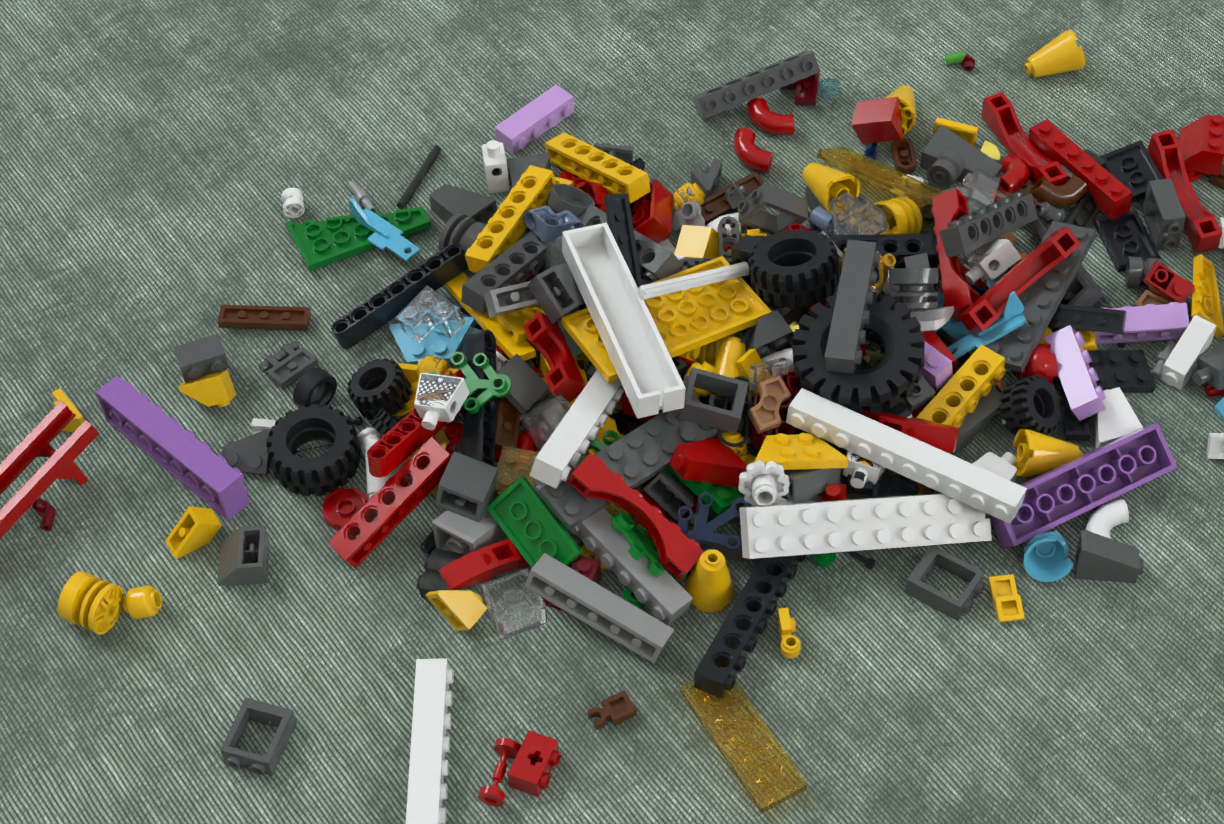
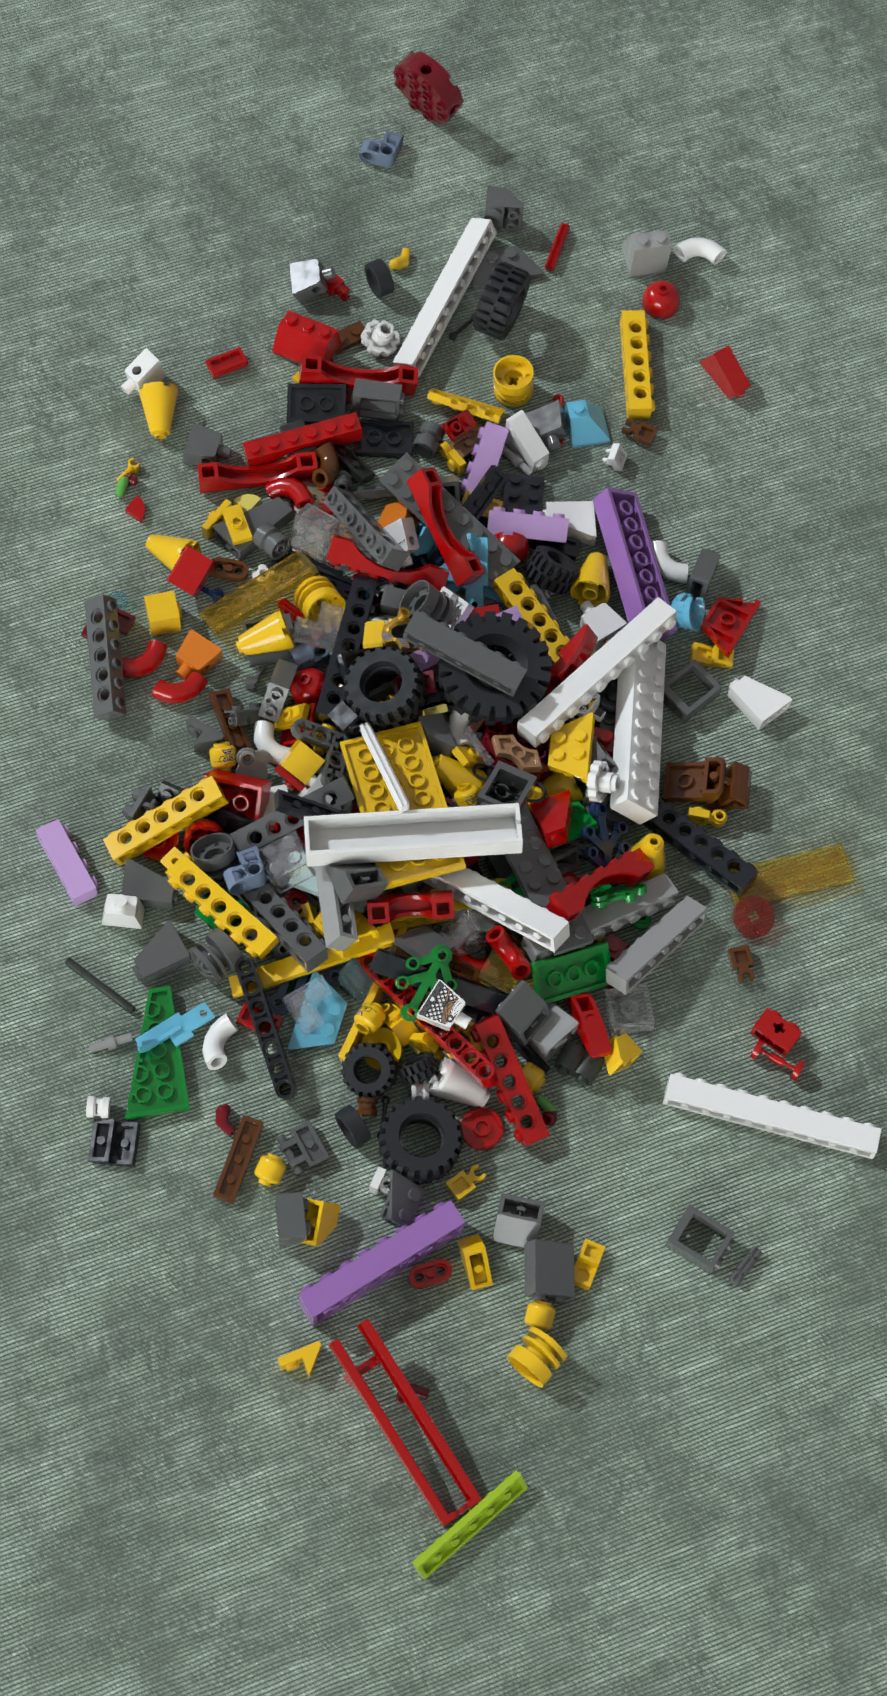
camera: 85 degrees left, 15 degrees up
(175, 499) = (429, 1273): none -> red plate
(190, 595) = (549, 1271): none -> dark grey brick
(211, 638) = (587, 1263): none -> yellow slope
(238, 793) = (745, 1266): none -> dark grey axle
(258, 342) = (270, 1169): none -> yellow head
(262, 225) = (114, 1142): none -> black slope
(277, 503) = (463, 1184): none -> yellow plate
(303, 296) = (221, 1119): none -> dark red arm
(342, 401) = (367, 1106): none -> reddish brown wheel
(376, 565) = (549, 1110): none -> arm
(379, 269) = (215, 1041): none -> white cylinder
(412, 534) = (534, 1076): none -> yellow head
(523, 466) = (509, 952): none -> red cylinder
(664, 697) = (747, 906): none -> clear red plate
(793, 153) = (197, 655): none -> orange torso
(827, 116) = (163, 613): none -> yellow head
(828, 625) = (708, 782): none -> reddish brown piece
(938, 75) = (136, 509): none -> red tile
(950, 138) = (236, 524): none -> yellow plate
(962, 656) = (758, 701): none -> white slope
(983, 61) = (131, 468): none -> yellow hand
(1032, 101) = (204, 446): none -> dark grey torso
(1057, 602) = (728, 621): none -> red wing
(1092, 35) = (142, 370): none -> white torso
(1133, 295) = (454, 460): none -> yellow plate
(1142, 97) = (226, 362): none -> red plate

